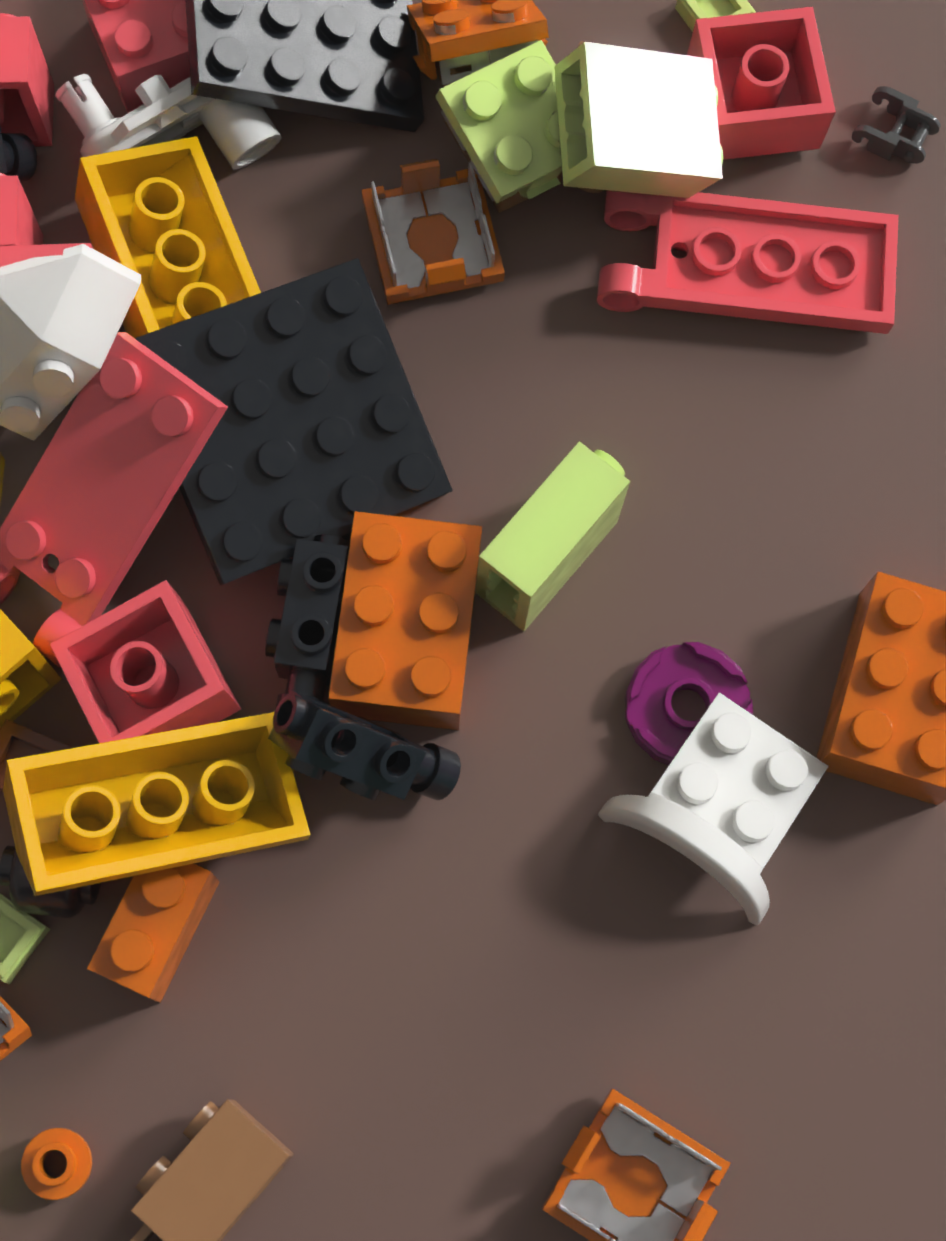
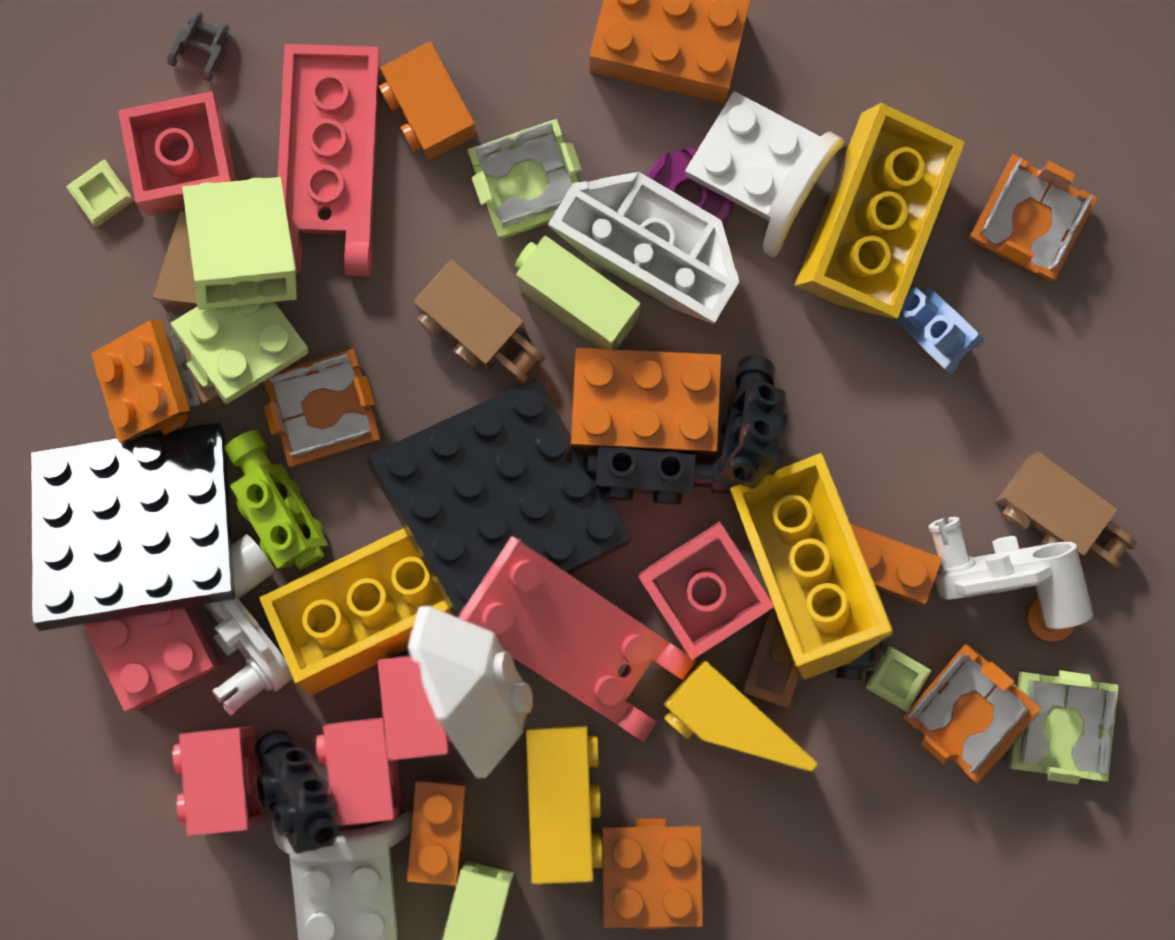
camera: 85 degrees left, 10 degrees up
(122, 1105) = (1049, 567): none -> white piece
(312, 169) = (274, 519): none -> lime brick
(481, 1025) = (938, 328): none -> medium blue hips
(529, 418) = (475, 322): none -> medium nougat brick
(624, 637) = (651, 241): none -> white wedge
(651, 959) = (880, 212): none -> yellow slope
(715, 496) = (524, 177): none -> piece
(820, 379) = (428, 102): none -> orange brick

